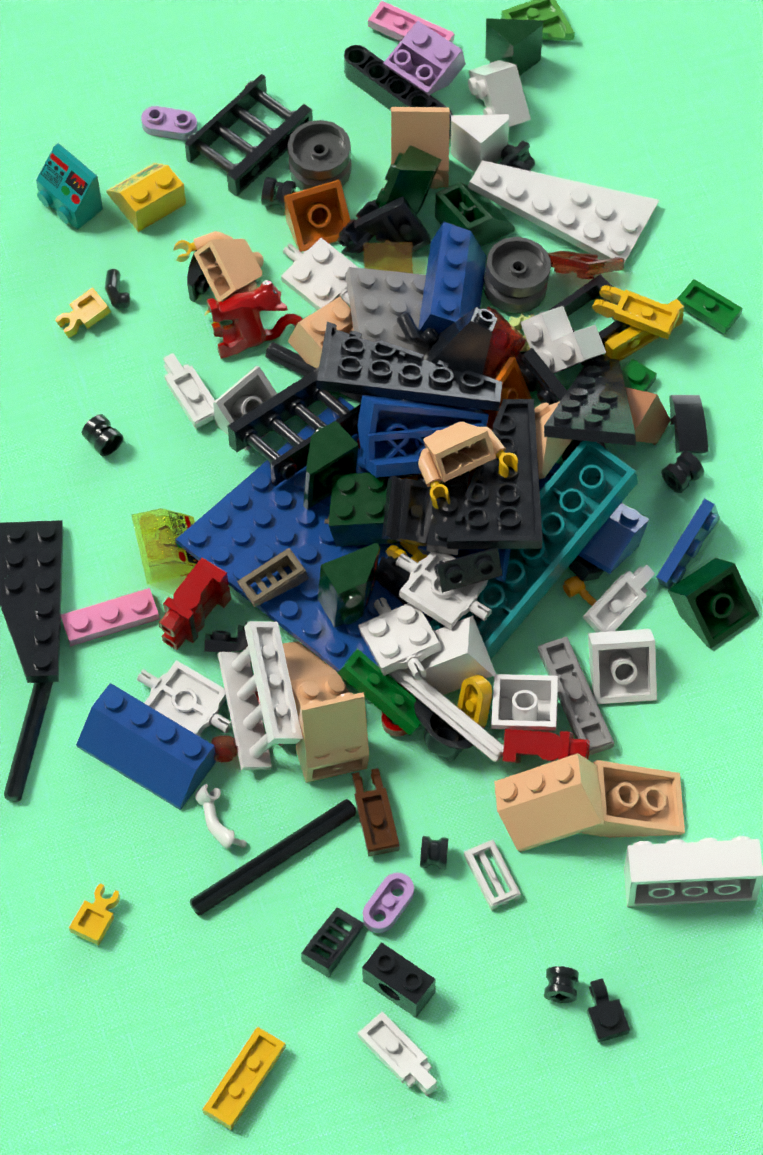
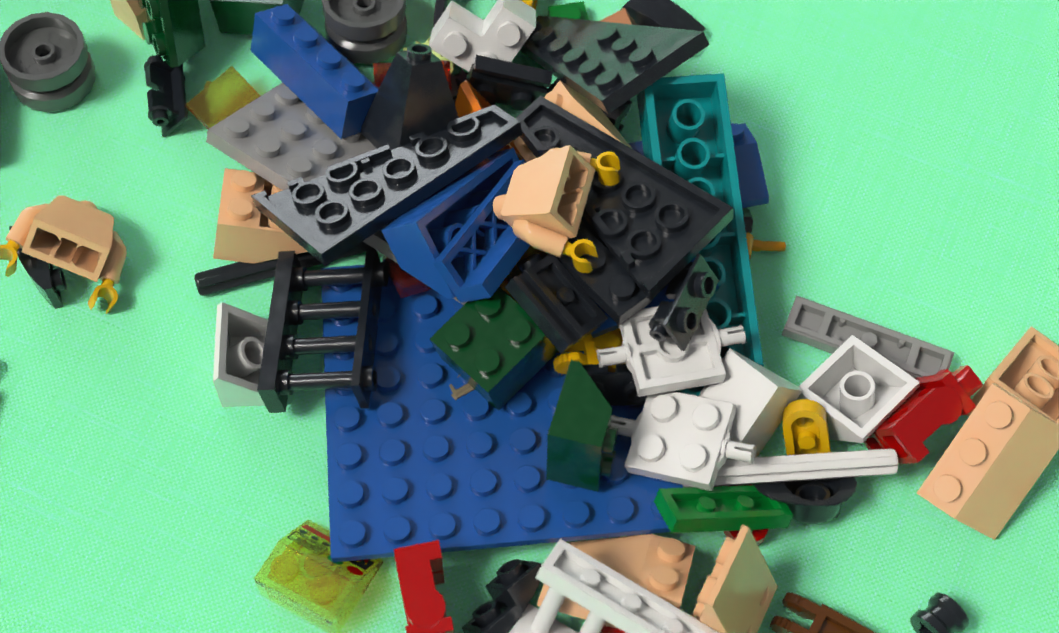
camera: 50 degrees left, 0 degrees up
(104, 437) = (117, 525): black wheel -> none
(189, 391) = (162, 396): white hinge -> none
(246, 324) = (147, 272): red animal -> none
(274, 192) = (47, 125): black wheel -> none
(274, 565) = (490, 466): dark tan slope -> none
(316, 214) = (104, 118): orange slope -> none
(318, 274) = (170, 172): white plate -> none
(330, 453) = (402, 331): dark green slope -> none
(395, 223) = (198, 59): black wing -> none
(414, 335) = (344, 140): black arm -> none
(503, 898) = (1001, 603): white tile -> none
(619, 600) = (798, 222): white hinge -> none
(623, 666) = (873, 273): white slope -> none
(682, 472) = (712, 59): black wheel -> none
(688, 544) = (793, 106): blue wing -> none
(714, 601) = (870, 148): dark green slope -> none

